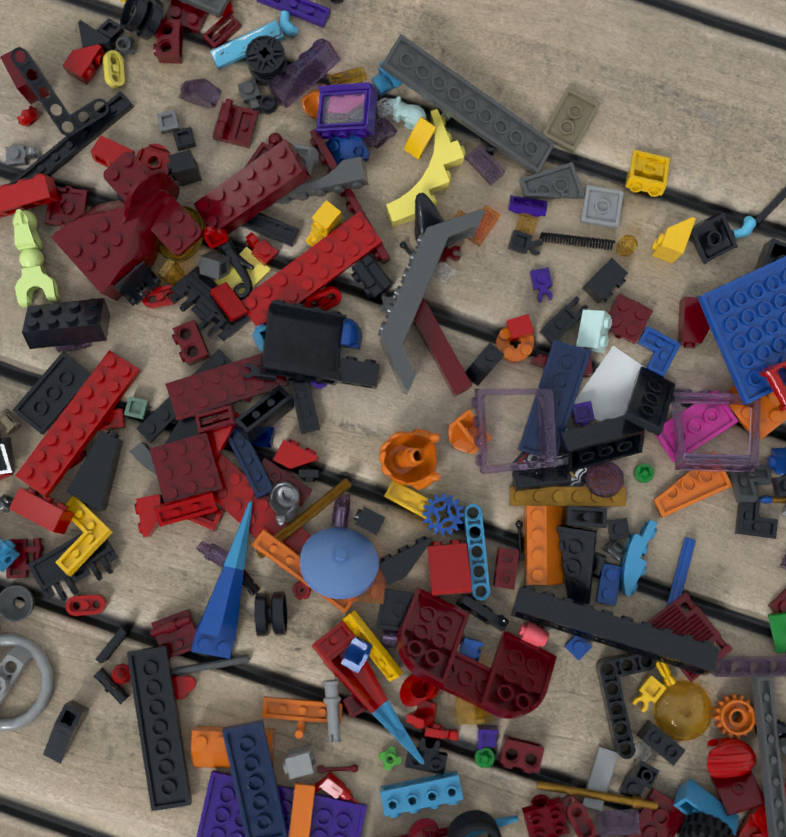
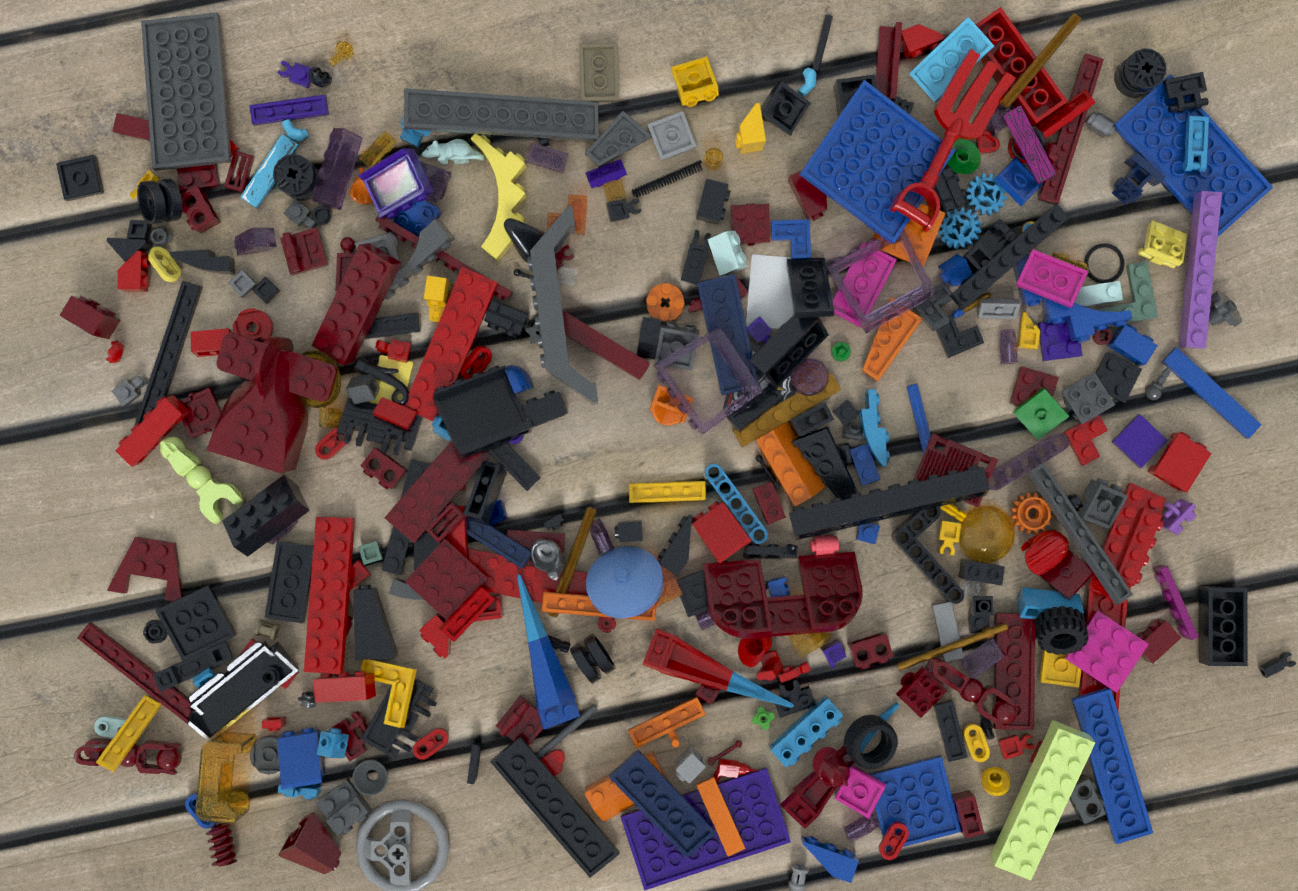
camera: 35 degrees left, 5 degrees up
(54, 99) = (131, 325): black beam -> none
(65, 730) = (477, 856): black slope -> none
(114, 689) = (493, 797): black pin -> none
(121, 674) = (496, 782): red plate -> none
(136, 281) = (303, 444): black hinge -> none
(150, 86) = (206, 261): none -> black slope
(184, 168) = (283, 318): black brick -> none
(213, 553) = (512, 636): clear purple hinge -> none
(215, 237) = (348, 364): red tile -> none
(256, 373) = (456, 461): black bar -> none
(293, 456) = (530, 514): red slope -> none
(332, 699) = (687, 699): light grey pin -> none
(356, 654) = (684, 649): blue panel -> none
(378, 652) = (694, 634): yellow tile -> none
(386, 103) = (429, 153): clear plate -> none
(411, 458) = (633, 457): orange piece -> none
(420, 137) = (475, 168): yellow slope -> none
(434, 510) = (680, 490): blue gear -> none
(484, 757) = (842, 670): green tile -> none
(504, 376) = (674, 338): none -> dark grey plate
(519, 327) = (661, 288): red panel -> none
(541, 281) = (657, 234): dark purple plate -> none

